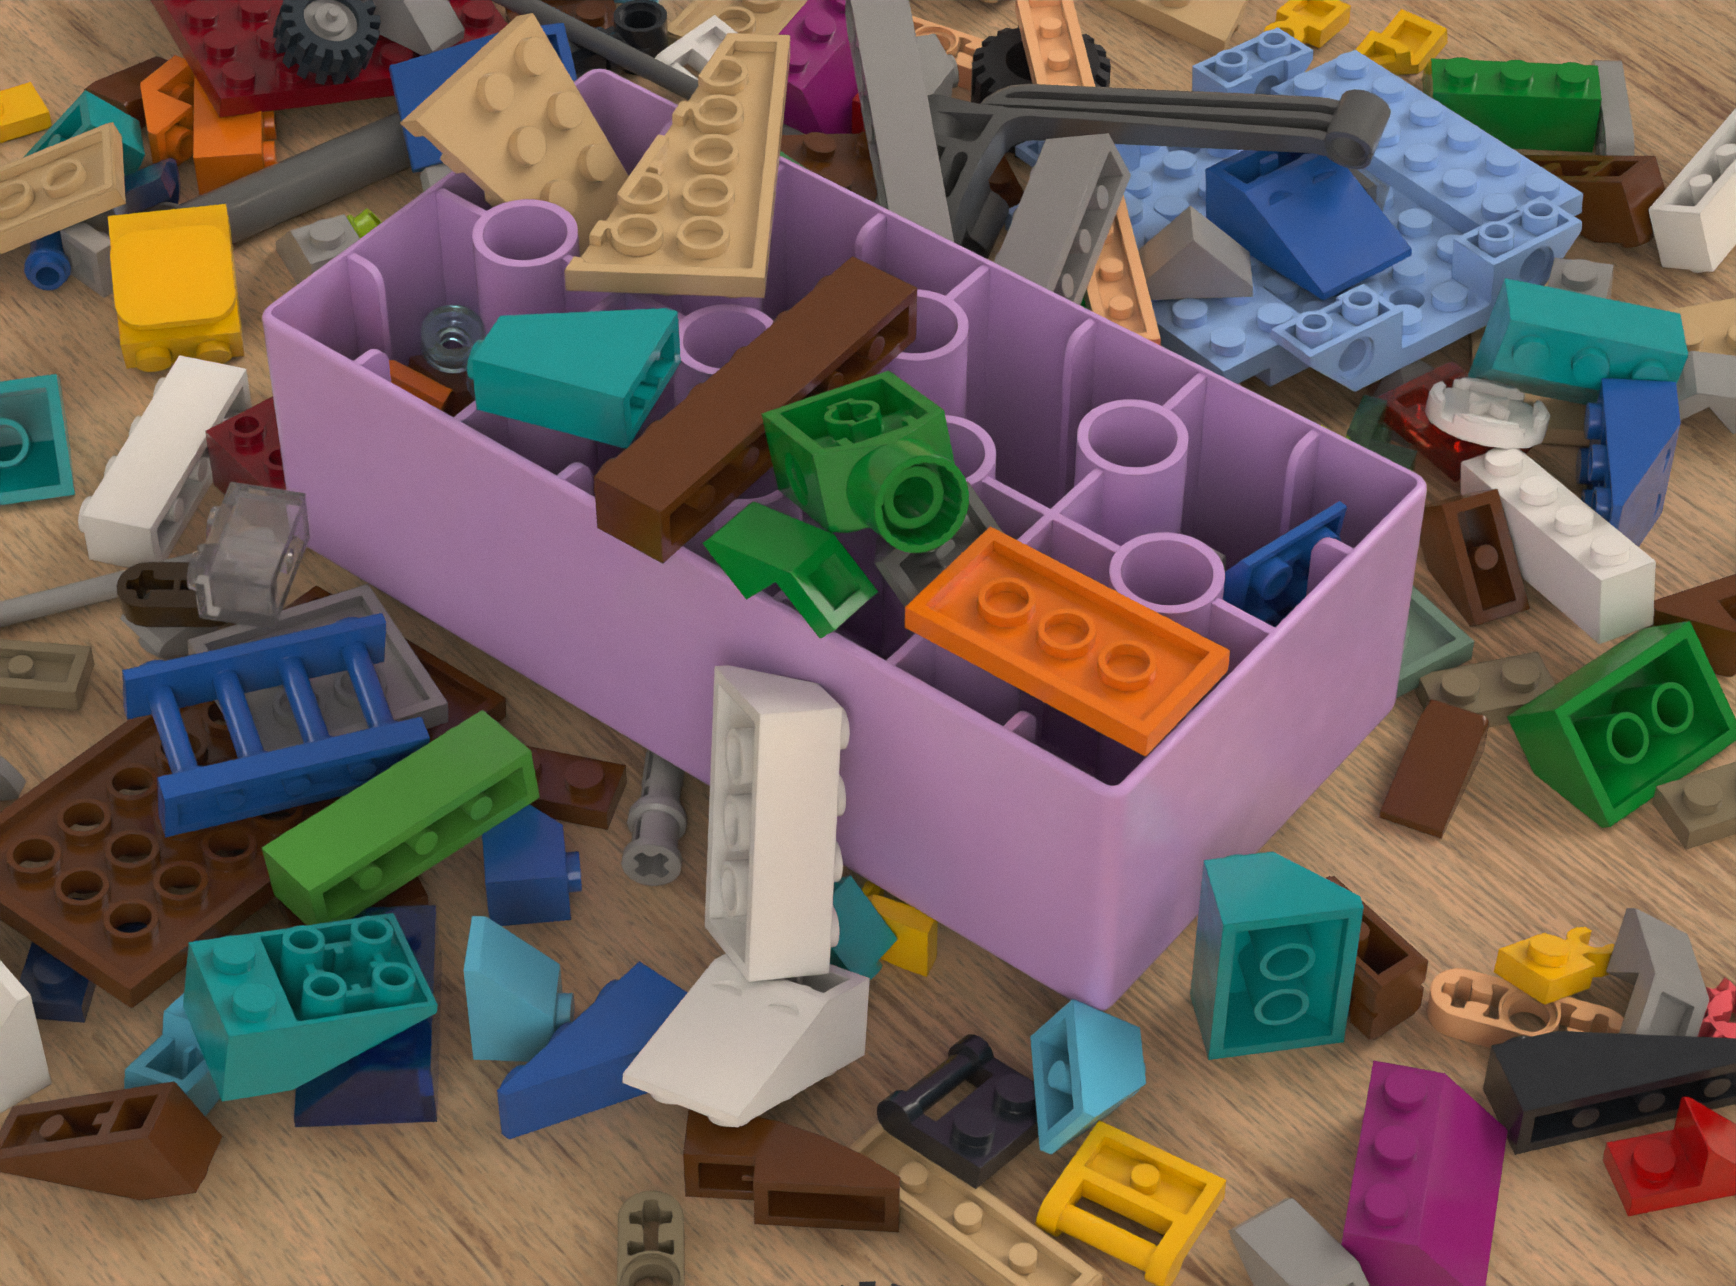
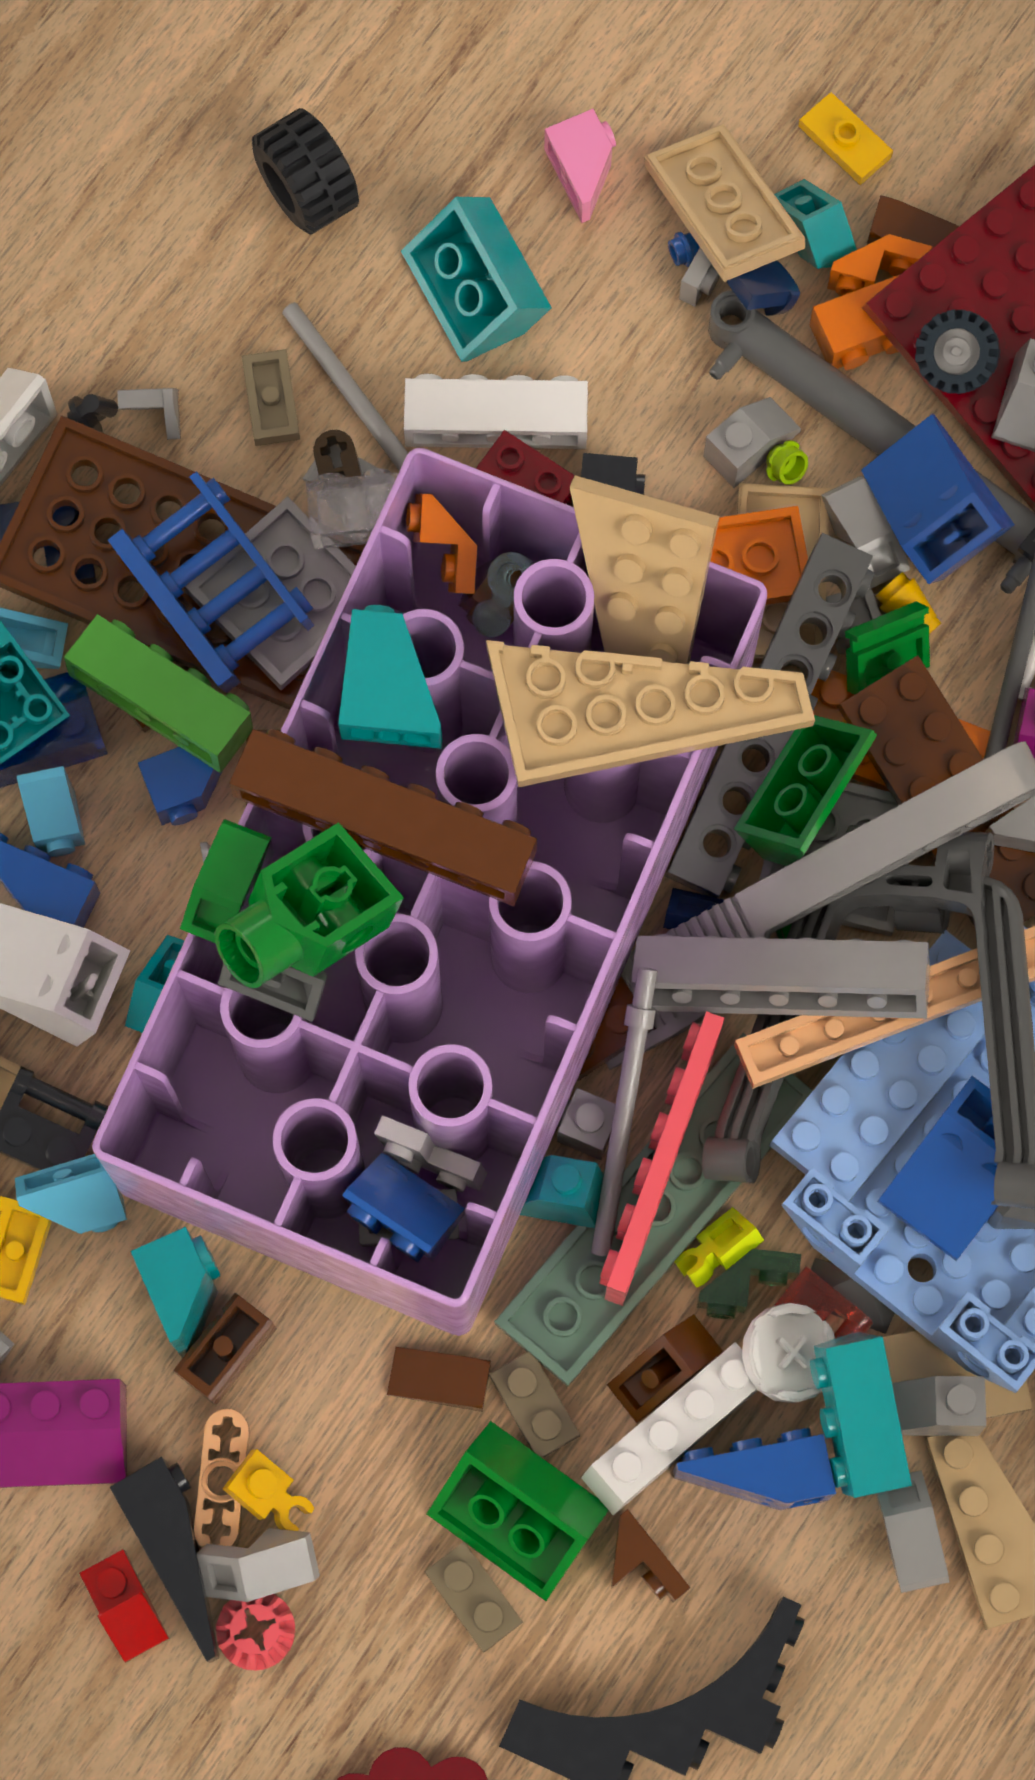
camera: 75 degrees right, 30 degrees up
(175, 286) = (661, 349): yellow brick -> none
(774, 823) = (133, 940): white slope -> none
(1067, 640) = (208, 1085): orange plate -> none
(1195, 261) = (877, 1092): light grey slope -> none

